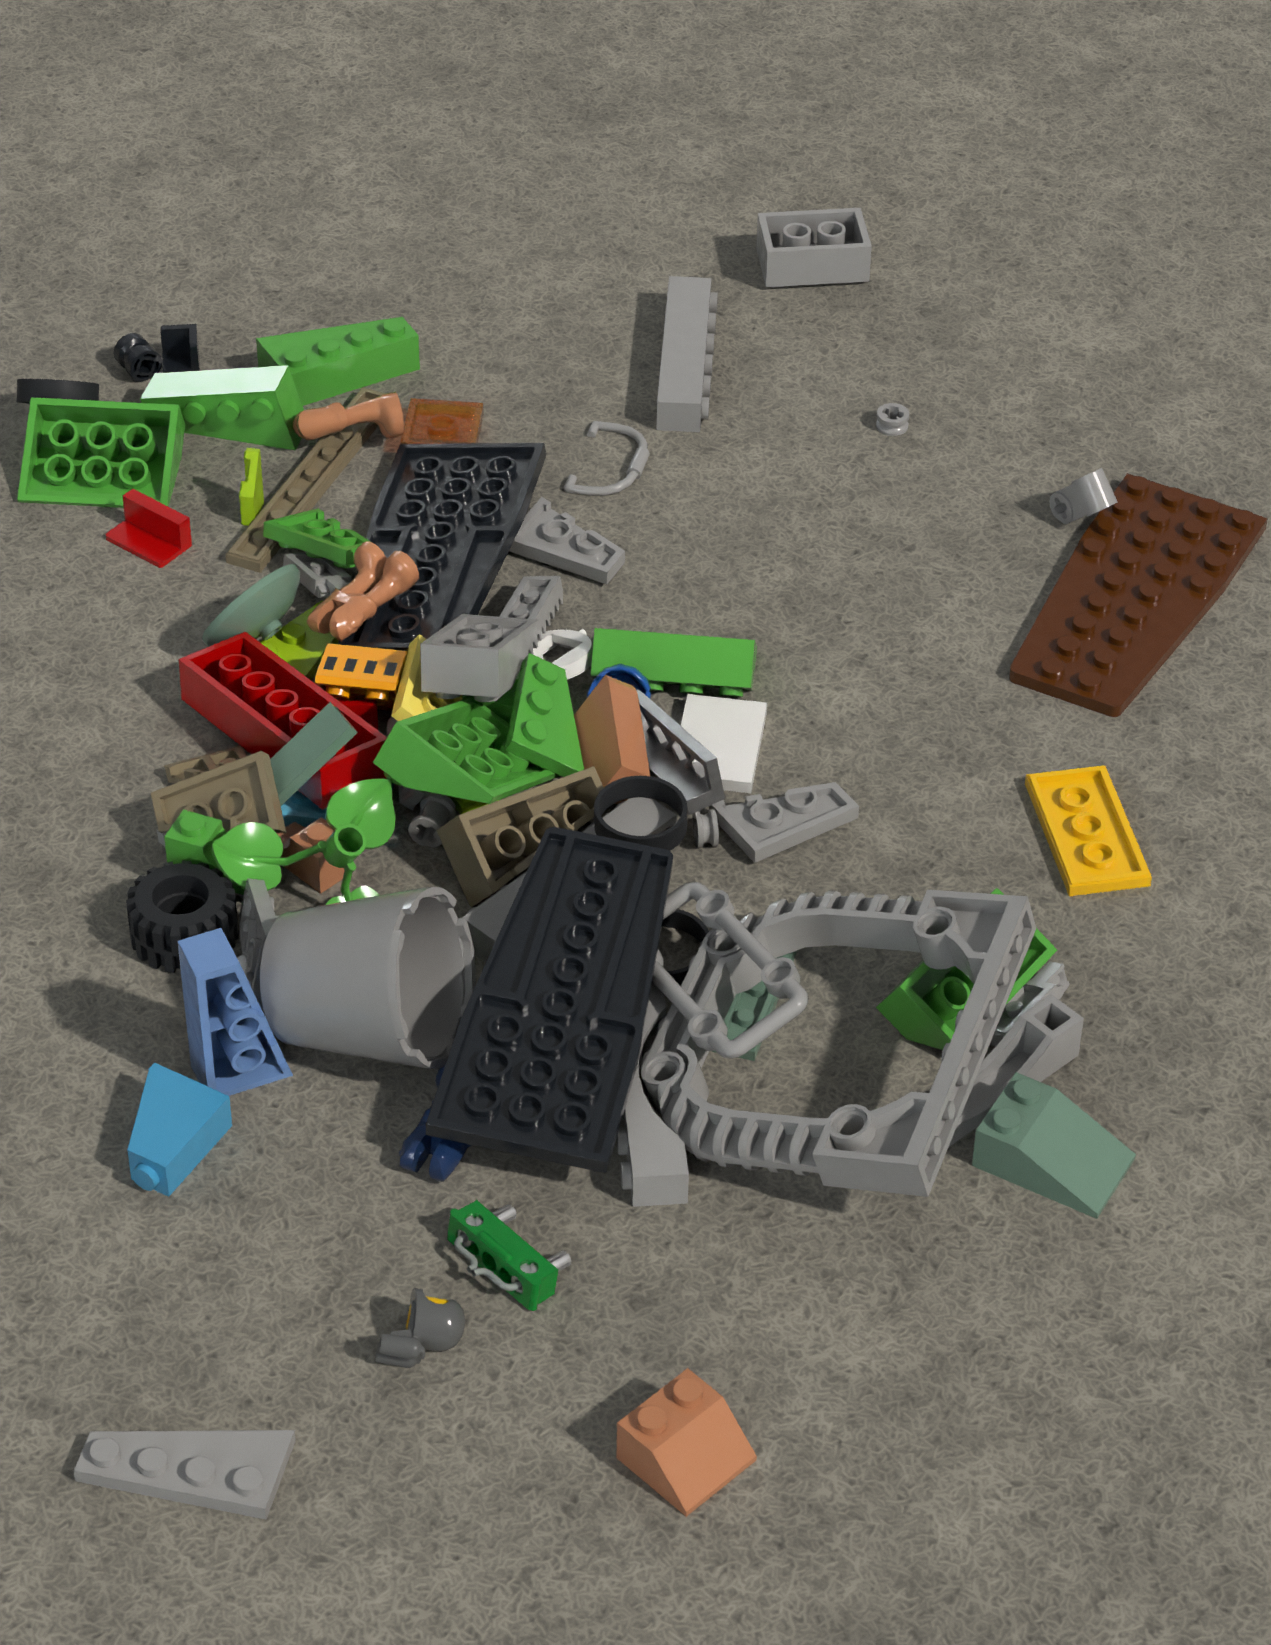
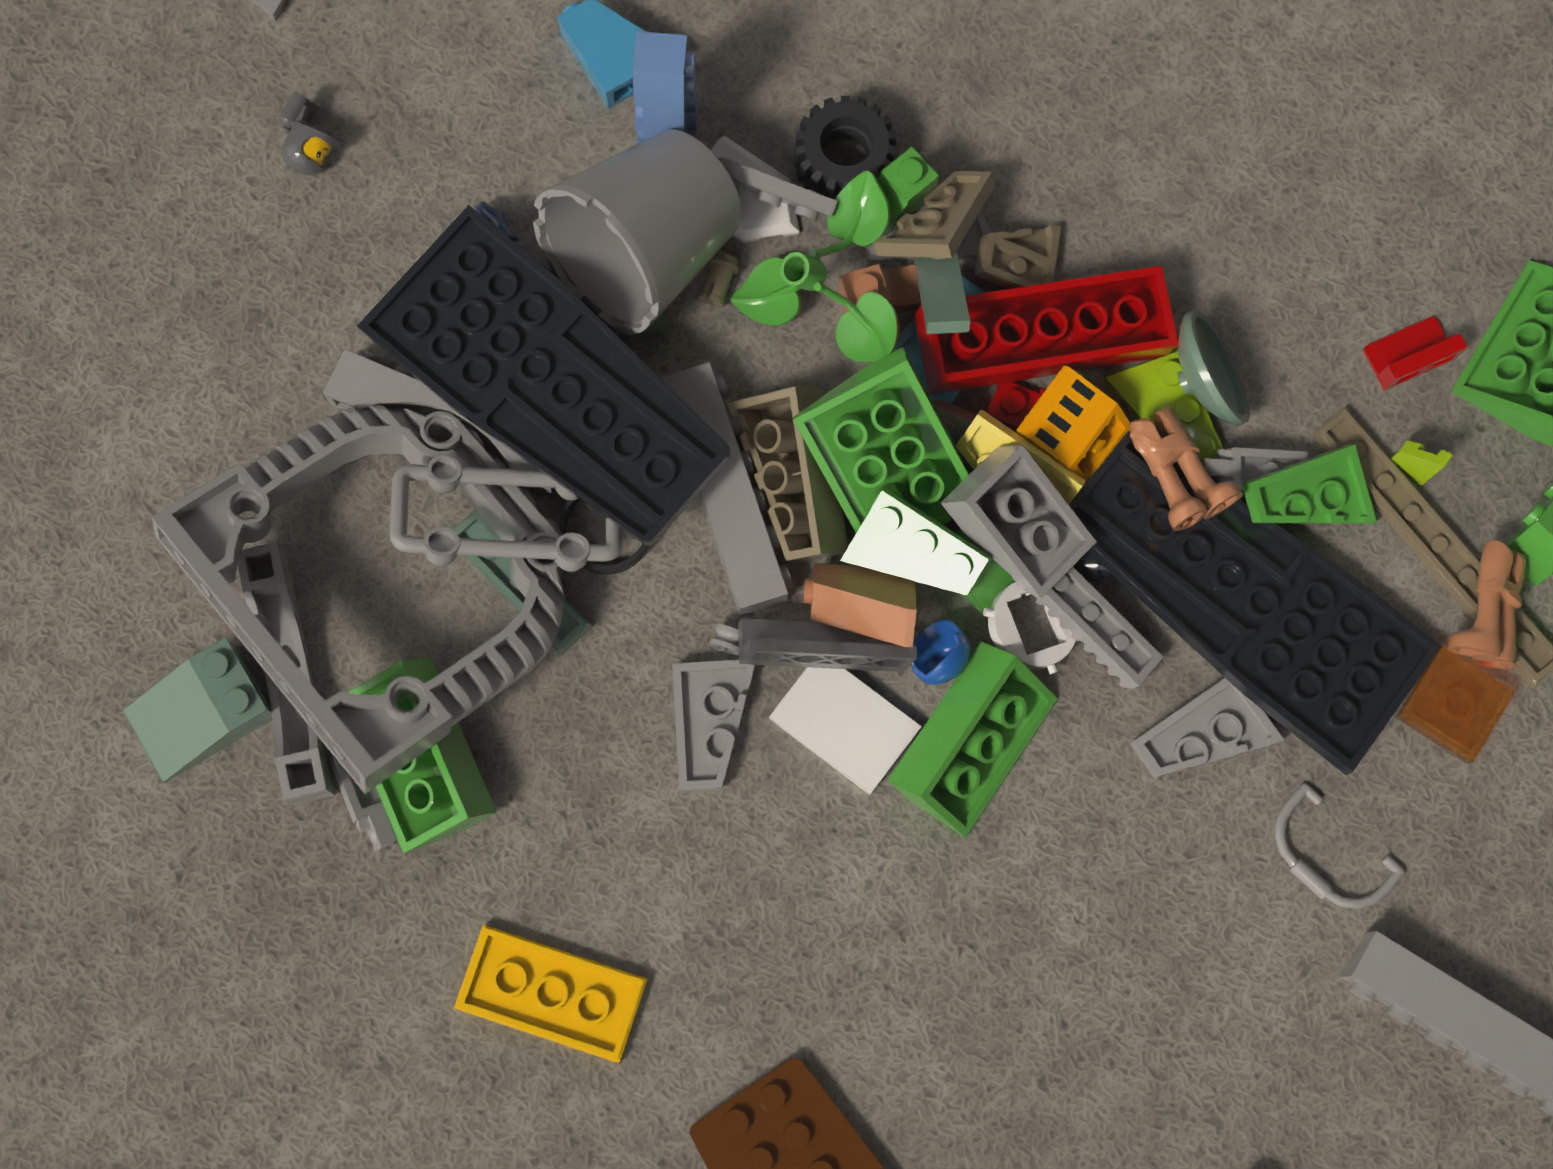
camera: 115 degrees right, 35 degrees up
(503, 1254) = (347, 231): green piece -> none
(642, 787) = (742, 523): black tyre -> none
(684, 1442) = (93, 265): nougat slope -> none

